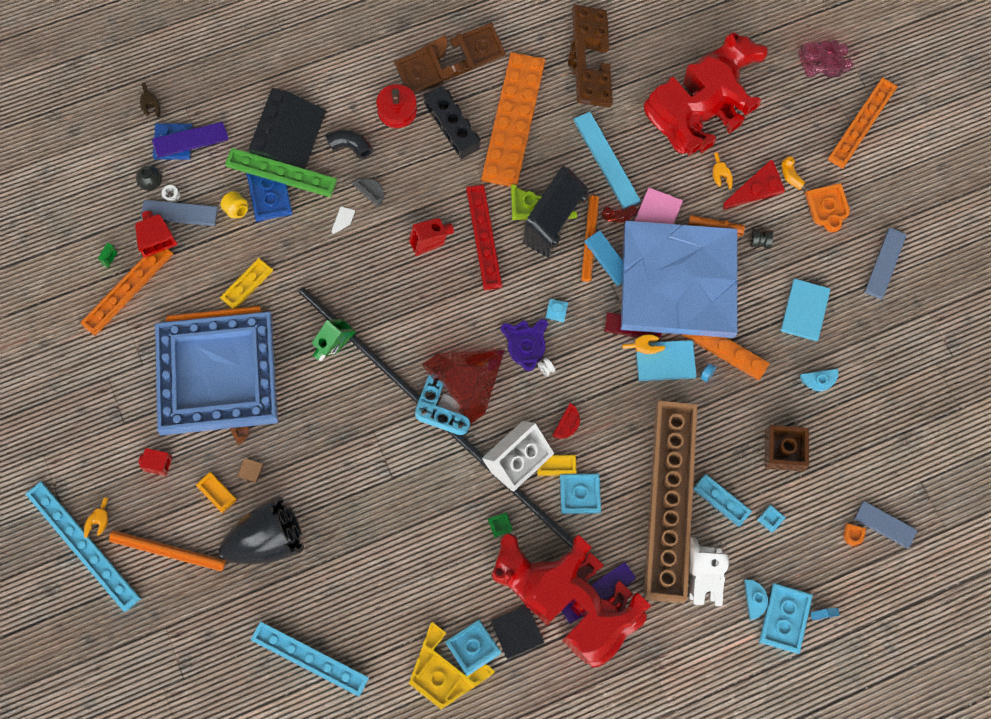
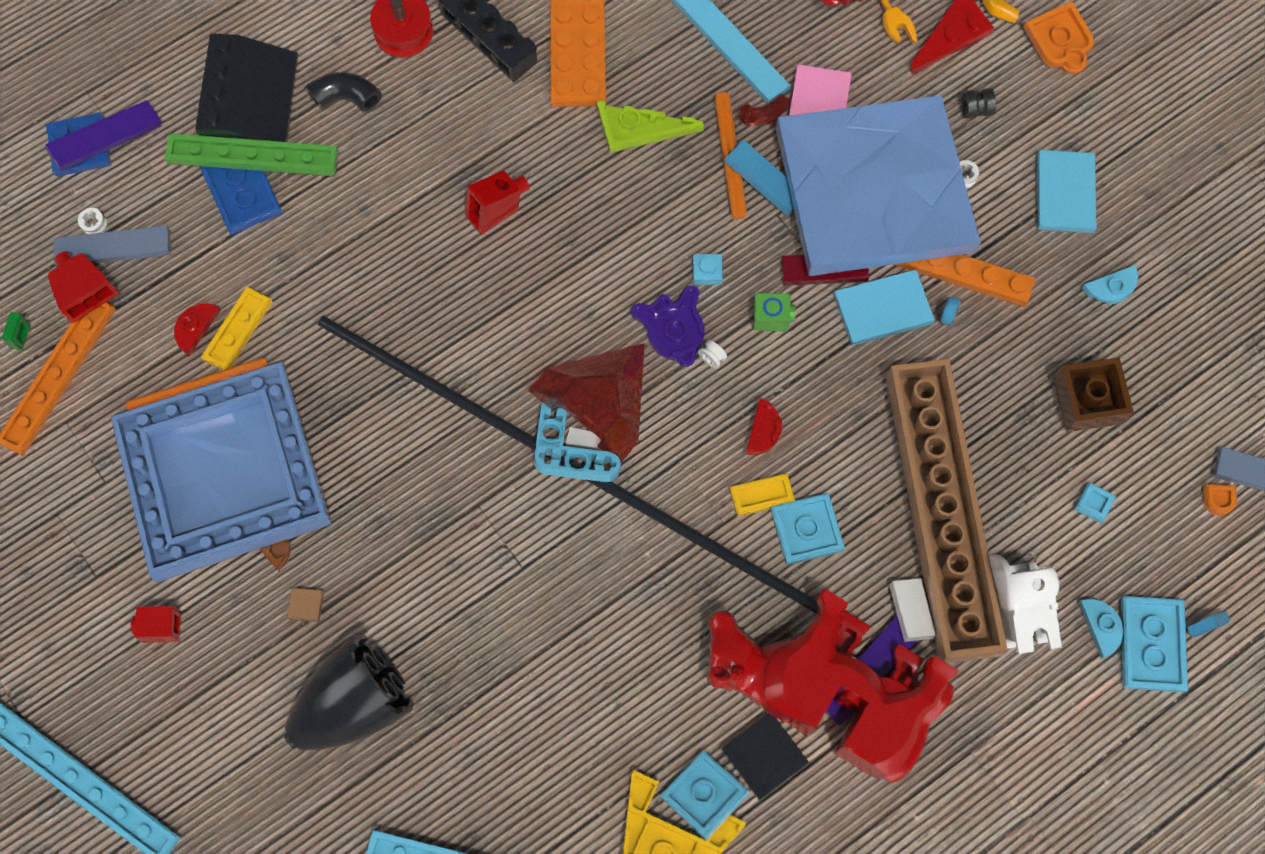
camera: 10 degrees left, 0 degrees up
(99, 517) = (89, 728): light orange hand -> none
(148, 99) = (28, 91): dark brown hand -> none
(148, 178) = (53, 205): pearl dark grey brick -> none
(167, 550) = (205, 755): orange axle -> none
(216, 492) = (261, 649): light orange tile -> none
(220, 275) = (193, 325): none -> red plate
(234, 204) = (192, 216): yellow head -> none
(332, 338) = (384, 380): green torso -> none
(343, 219) = (360, 204): white sticker -> none
(371, 190) = (391, 152): dark grey plate -> none
(484, 237) = (575, 187): red tile -> none
(500, 525) = (700, 602): green tile -> none
(518, 455) = (703, 492): white slope -> none
(553, 210) = (670, 125): black windscreen -> none
(592, 348) = (772, 312): none -> bright green brick
(634, 561) = (912, 610): none -> white tile
(642, 345) = (845, 291): light orange hand -> none
(707, 222) = (878, 97): orange pin -> none
(722, 500) = (1018, 492): medium azure tile -> none
(746, 280) = (973, 169): none -> white bush
(885, 263) = (1162, 101): sand blue tile -> none

